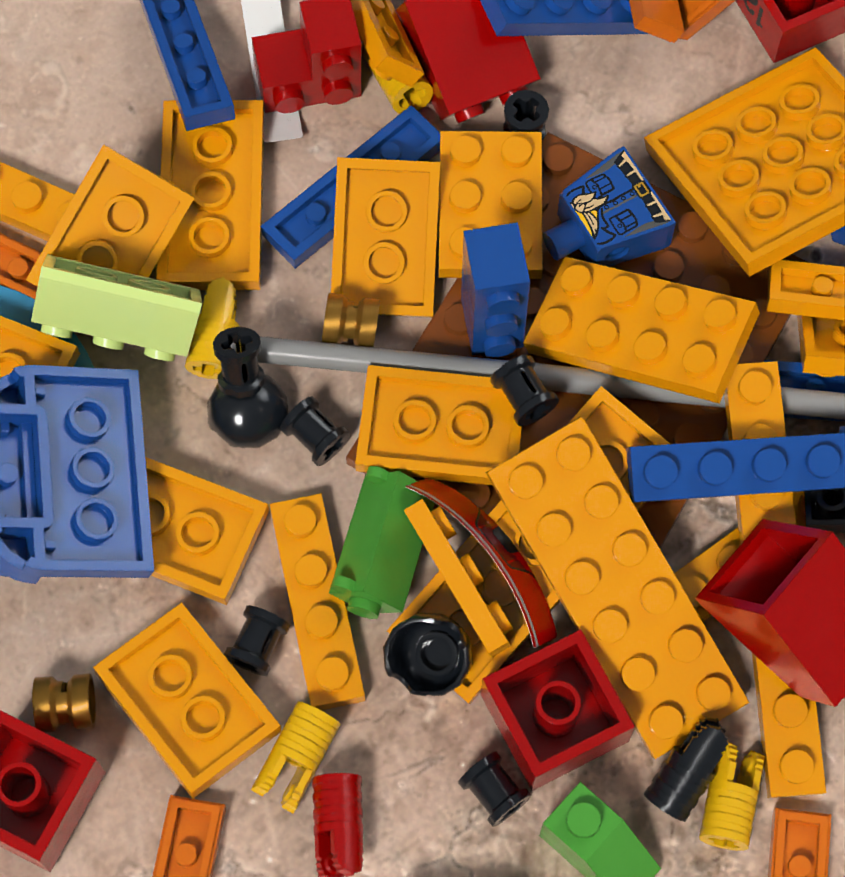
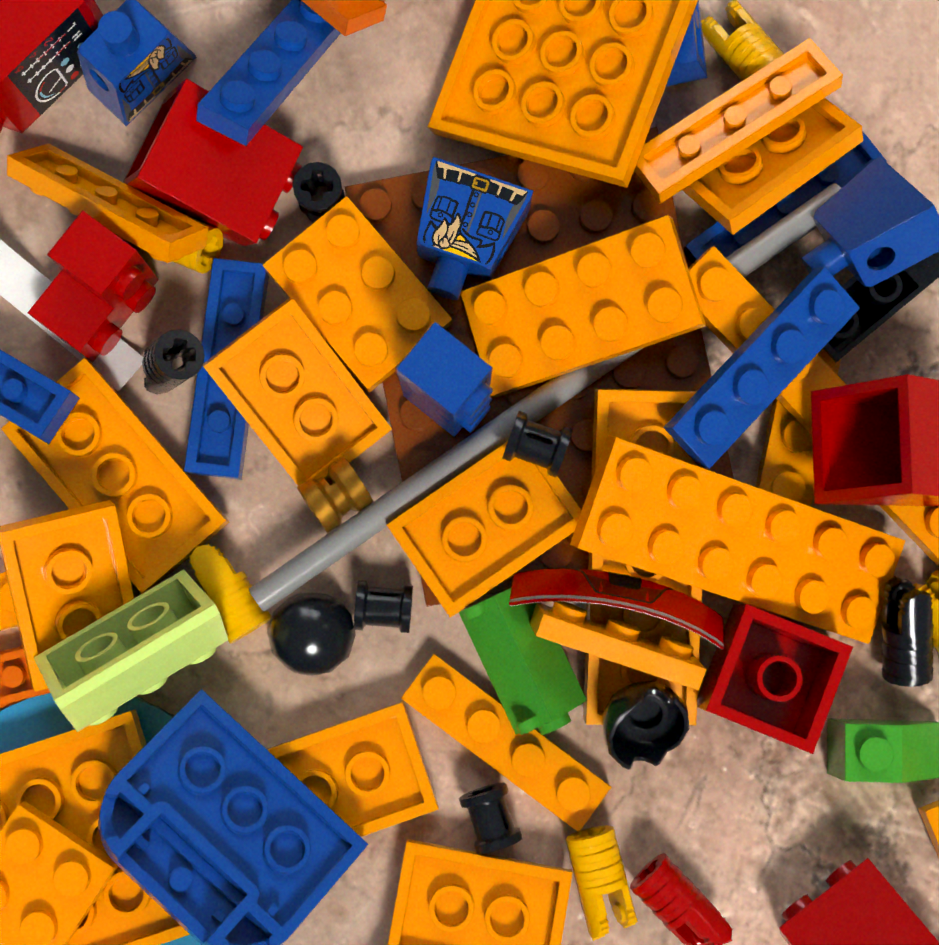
camera: 45 degrees left, 15 degrees up
(239, 362) = (285, 609): black bush -> none
(318, 143) = (170, 346): none -> black hinge
(494, 788) = (772, 774): black bush -> none

